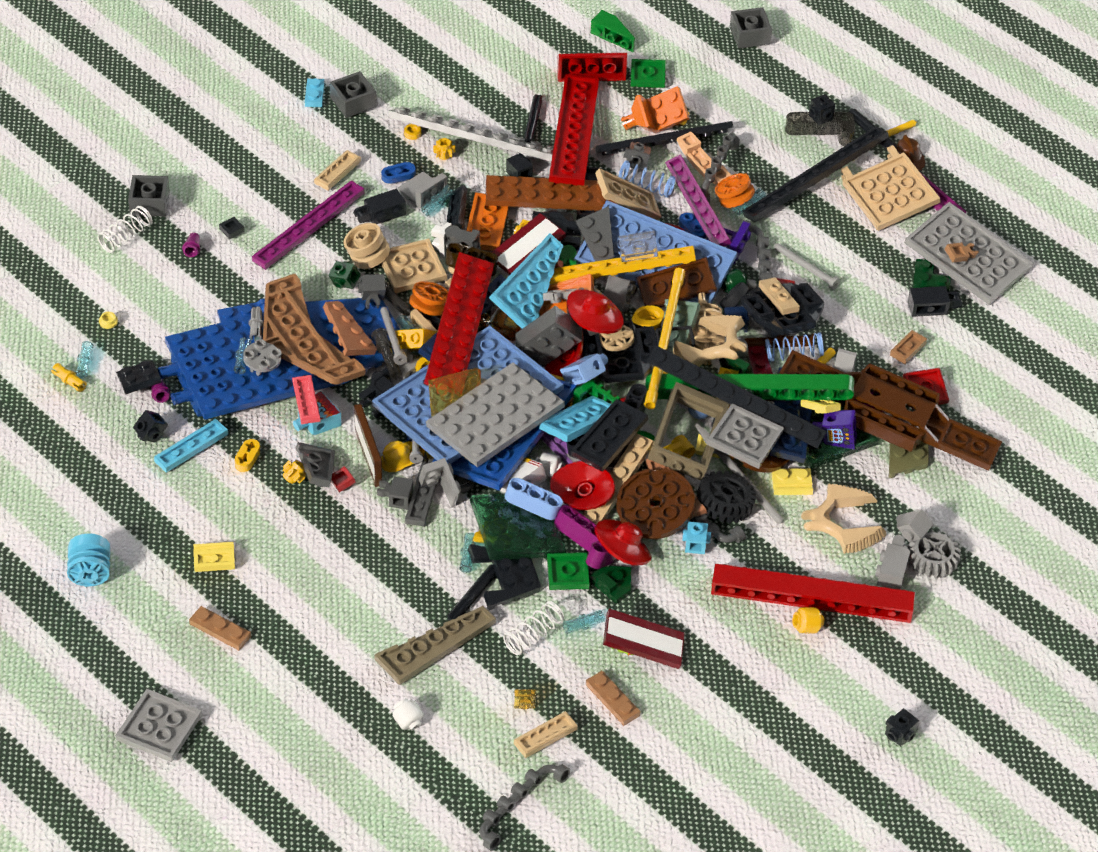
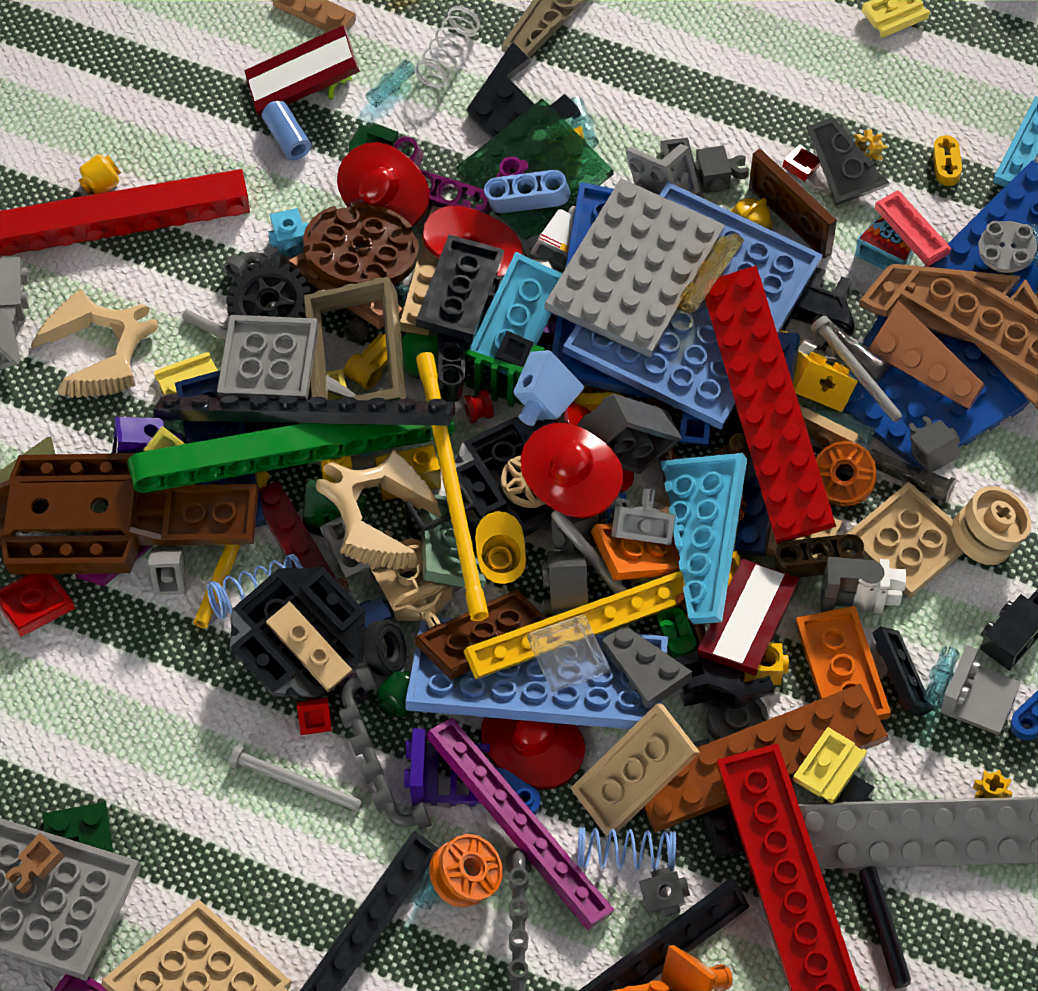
camera: 160 degrees right, 10 degrees up
(344, 275) = (995, 469): dark green brick -> none
(473, 593) = (551, 67): black axle -> none
(526, 163) = (829, 765): none -> light yellow plate
(535, 518) = (512, 163): none -> magenta plate
(567, 571) = (442, 140): green plate -> none
(593, 396) = (514, 349): none -> black plate
(669, 608) = (286, 130): none -> medium blue brick
(697, 157) = (551, 942): light nougat slope -> none
(908, 347) = (80, 670): medium nougat plate -> none
(932, 301) = (63, 773): black brick -> none

